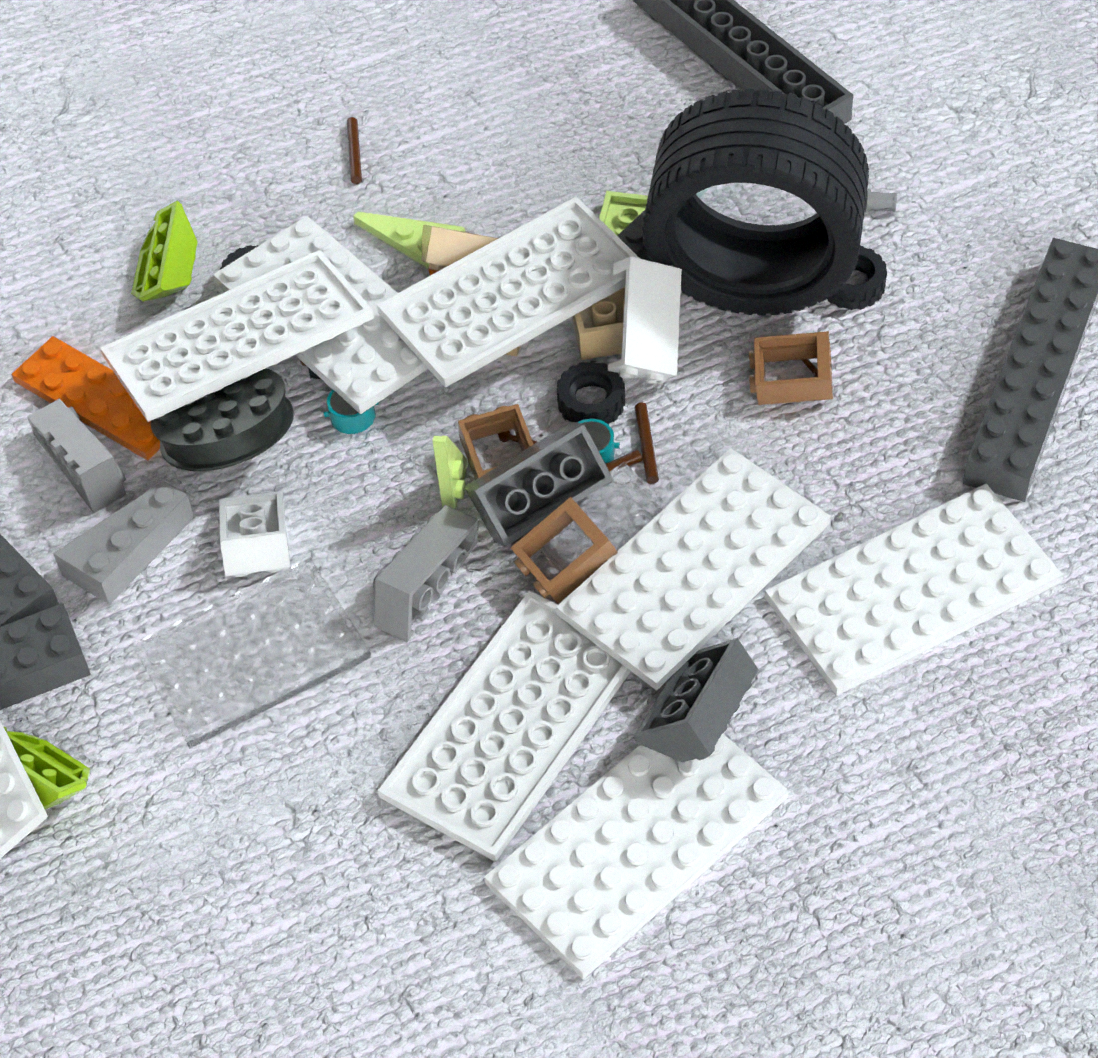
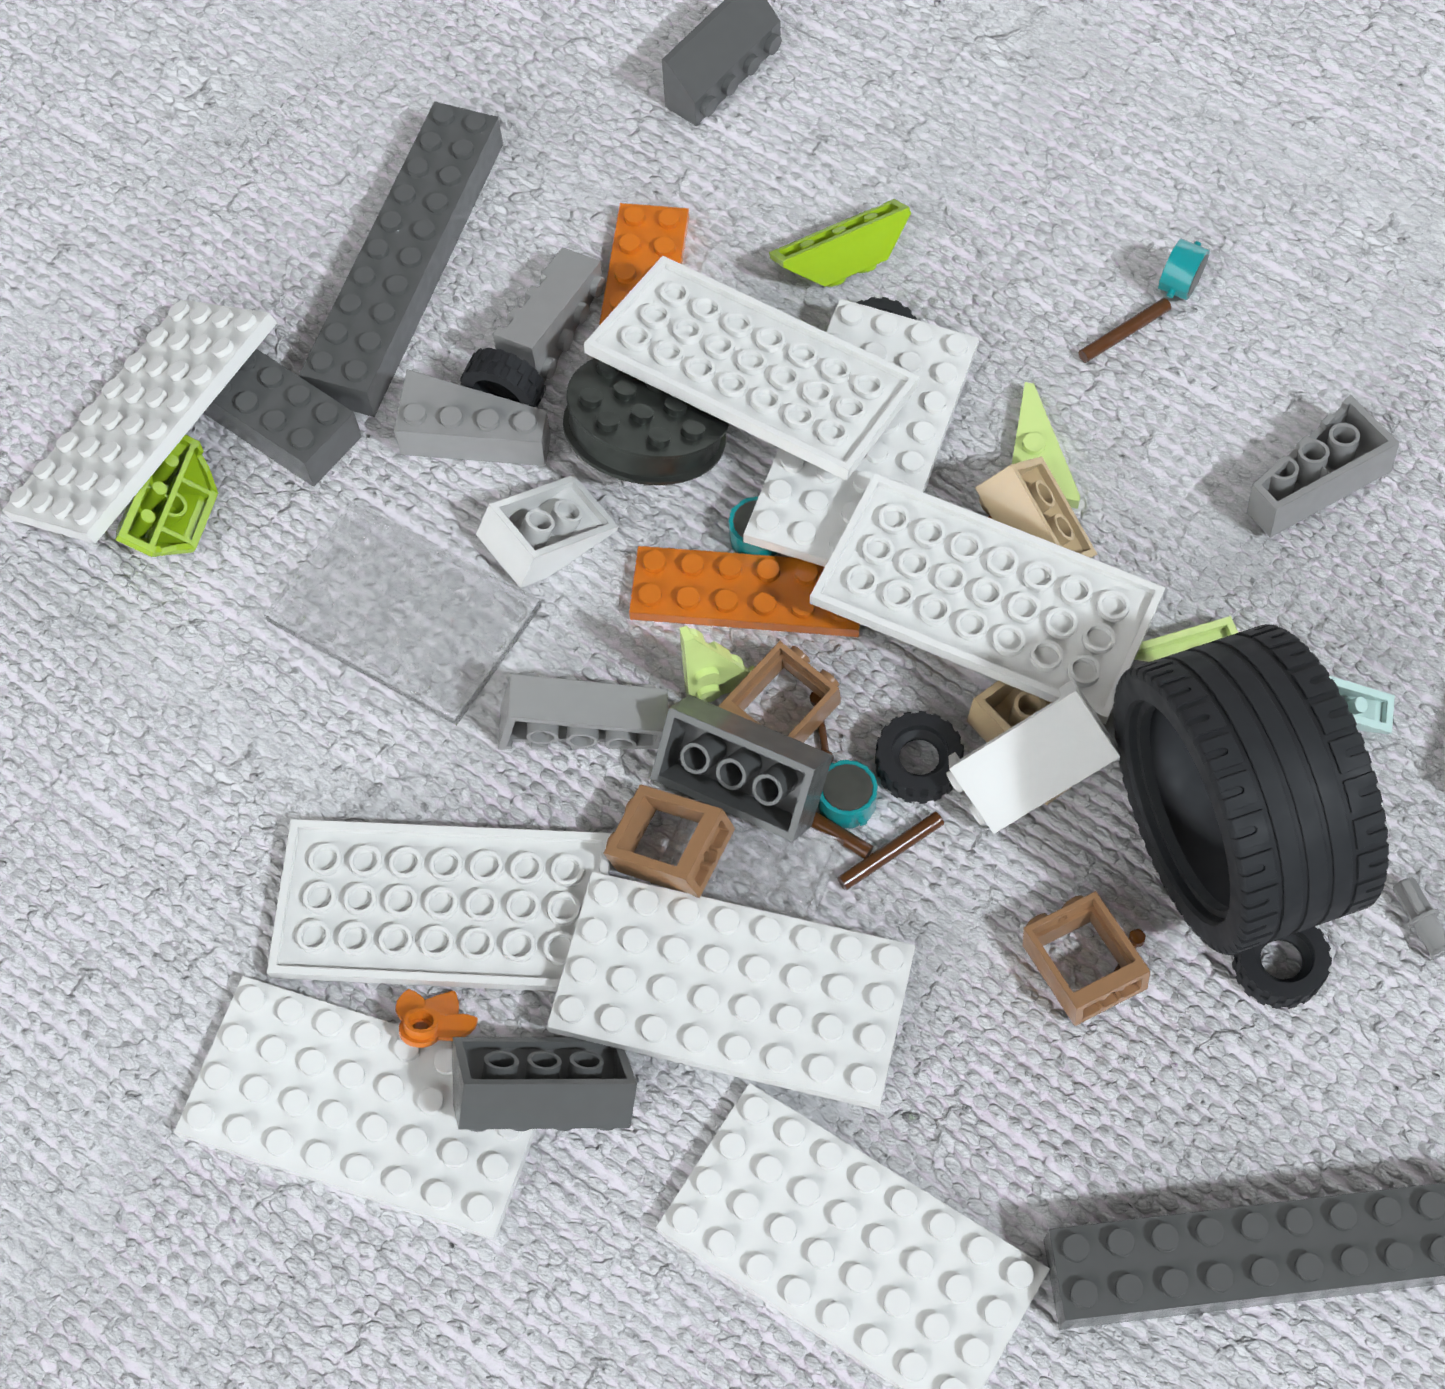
camera: 60 degrees right, 10 degrees up
(107, 487) = (504, 376): none -> black tyre
(339, 95) = (1183, 269): none -> teal piece
(390, 442) = (731, 592): none -> orange plate
(537, 93) = (1323, 468): none -> light grey wedge
(601, 761) = (431, 1019): none -> orange plate

